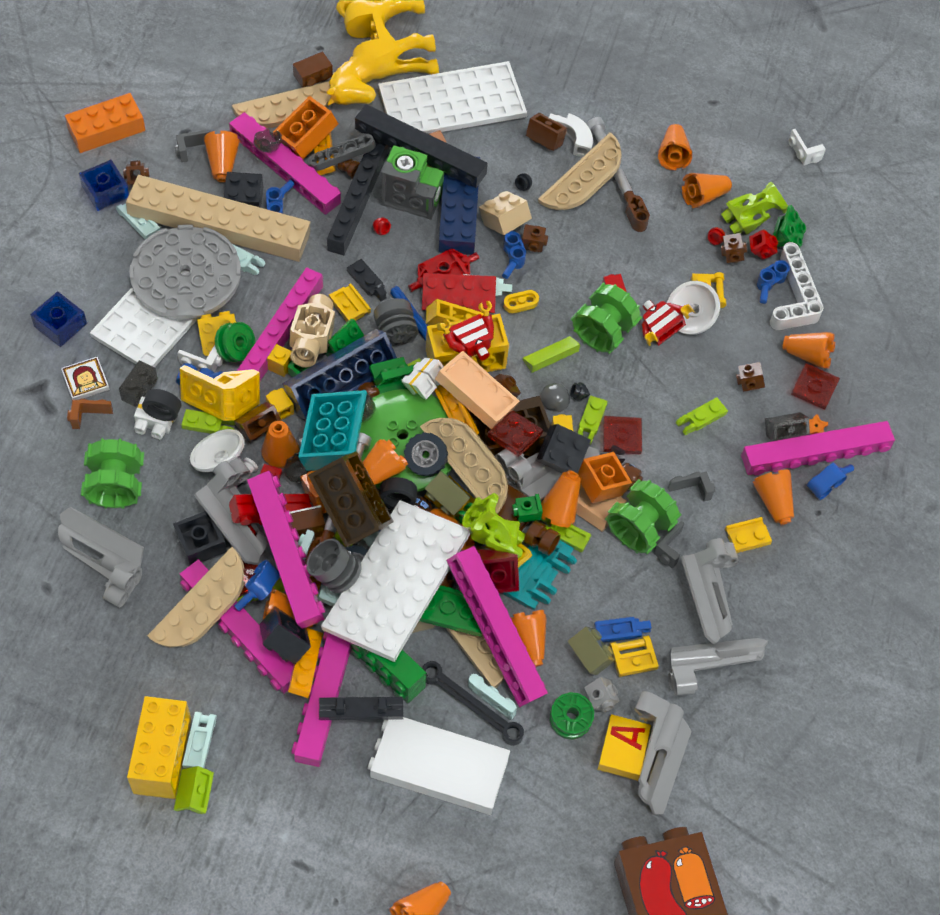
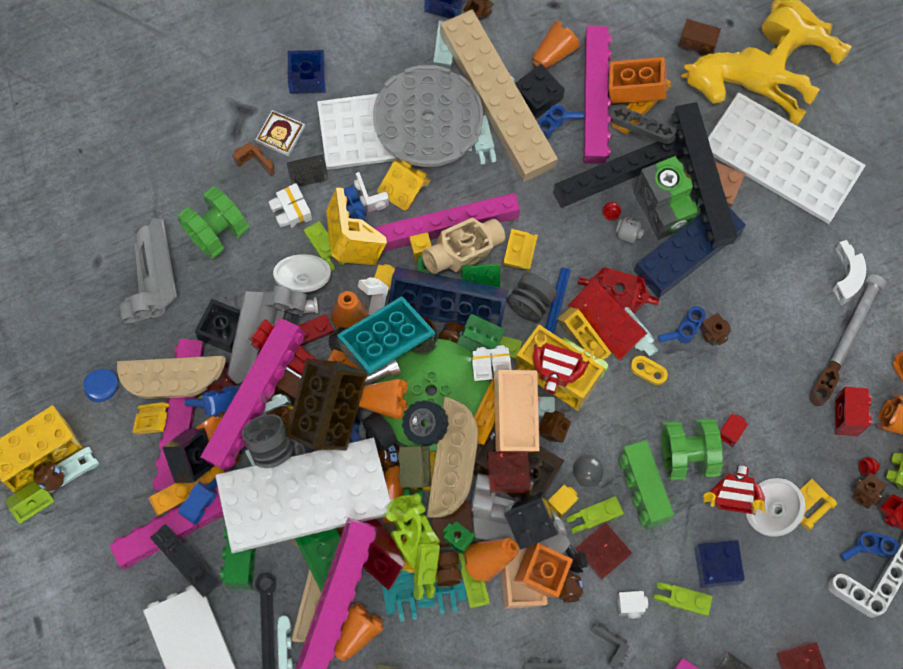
camera: 50 degrees right, 10 degrees up
(153, 664) = (100, 385): none -> blue piece
(161, 405) = (294, 203): black tyre -> none
(189, 140) = (545, 12): dark grey bracket -> none
(194, 752) = (48, 476): none -> reddish brown head
(221, 646) = (150, 418): none -> yellow plate
(234, 341) = (401, 192): green wheel -> none
(257, 421) = (348, 276): reddish brown brick -> none
(267, 141) = (595, 65): clear smoke hair -> none
(274, 109) = (638, 43): tan plate -> none
(290, 415) = (377, 289): none -> white bracket
(327, 658) = (199, 497): none -> blue beam
(349, 166) = (639, 141): reddish brown wheel -> none
(367, 279) = (555, 243): black hinge -> none
(408, 226) = (629, 229): none -> light grey head
(505, 212) = (714, 288): tan brick -> none
(523, 182) = (762, 276): black plate -> none
(531, 550) = (426, 570): none -> lime hinge
(546, 131) = (826, 251): reddish brown brick -> none
(551, 354) = (623, 432): lime slope -> none
(579, 391) = (611, 484): black plate -> none
(585, 176) = (816, 317): tan plate -> none
(603, 367) = (645, 485): none -> bright green brick
(649, 509) = (536, 631): bright green piece -> none
(671, 210) = (852, 411): none -> red brick
(676, 448) = (632, 604): none -> white brick
(699, 373) = (719, 564): none -> clear blue brick
(750, 376) = (756, 608): reddish brown brick -> none
(811, 347) = (835, 635): orange cone -> none

